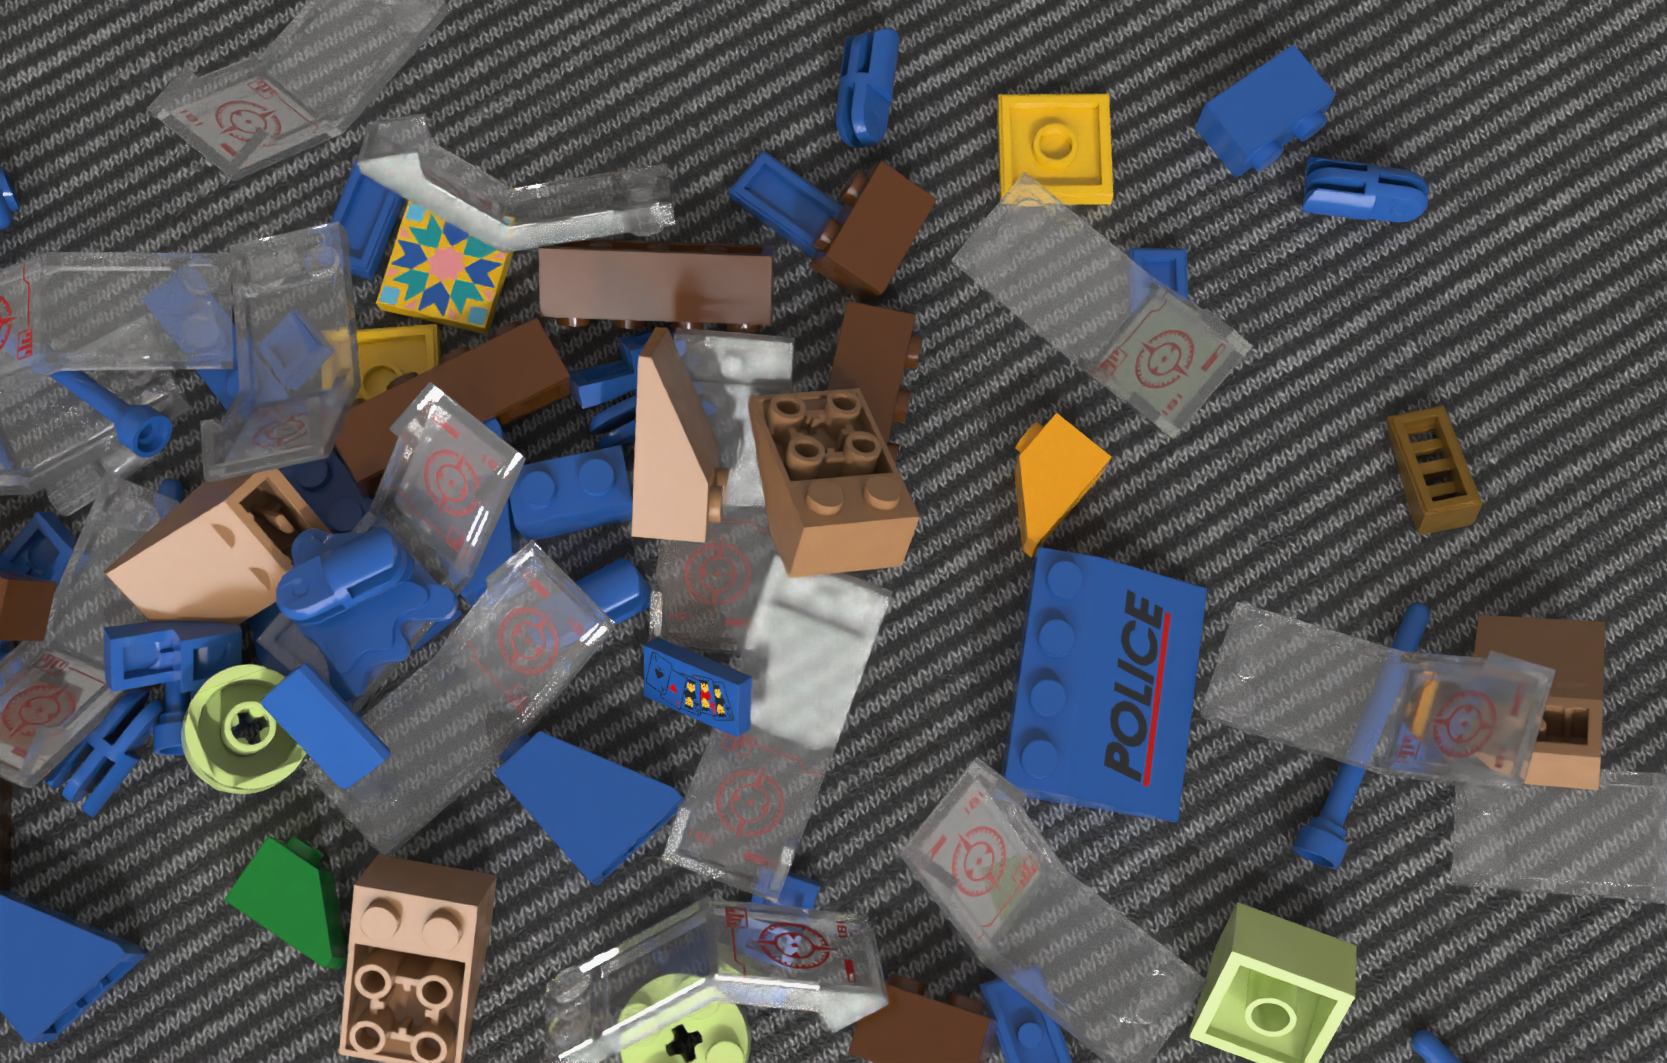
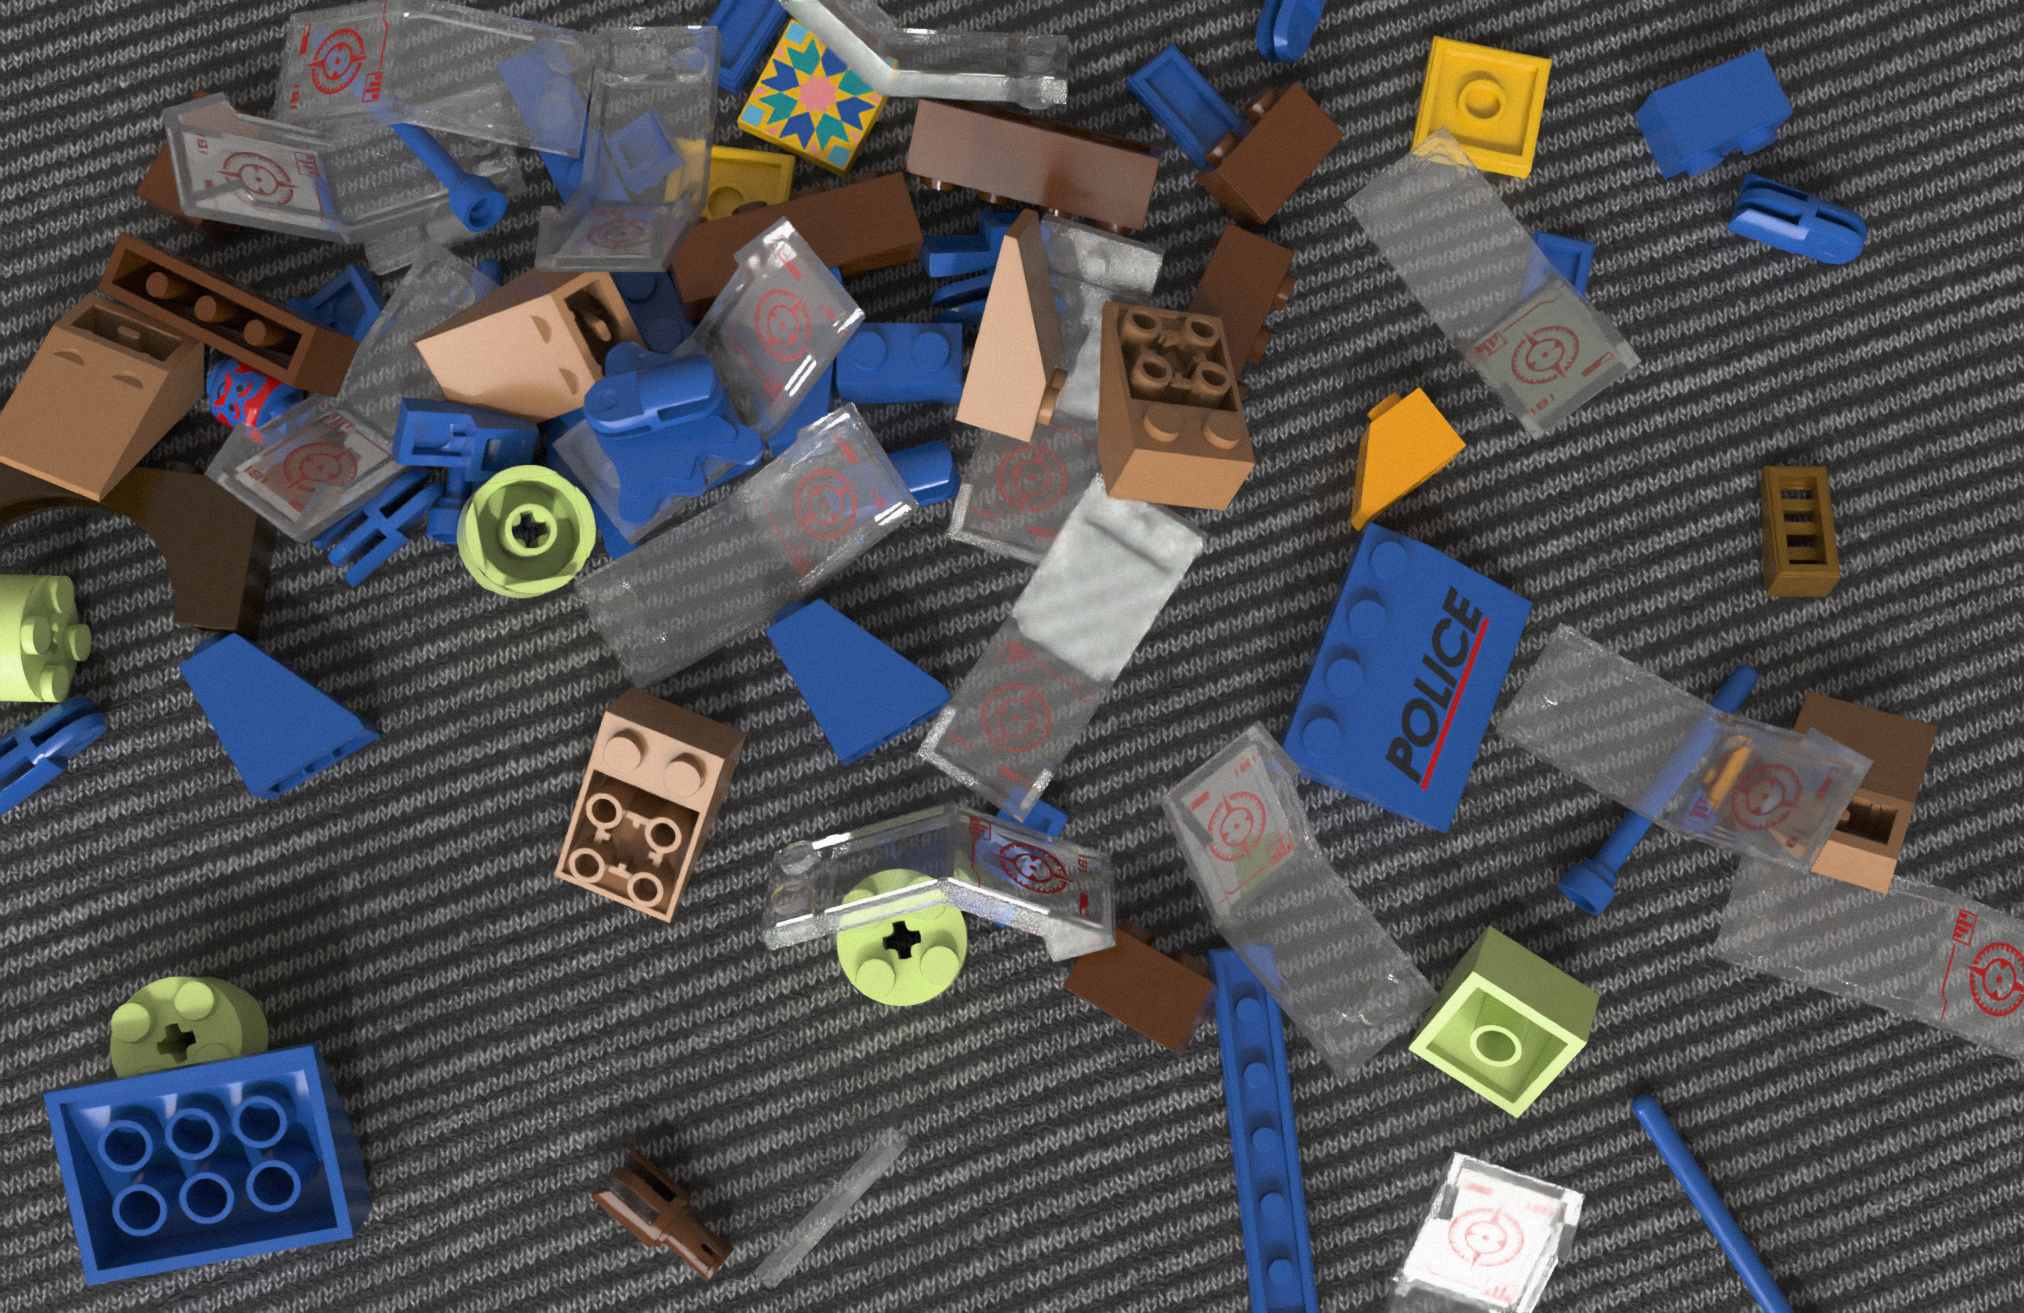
camera: 10 degrees right, 5 degrees up
(293, 899) = (539, 712): green slope -> none
(325, 726) = (606, 545): blue slope -> none
(697, 686) = (988, 588): blue tile -> none

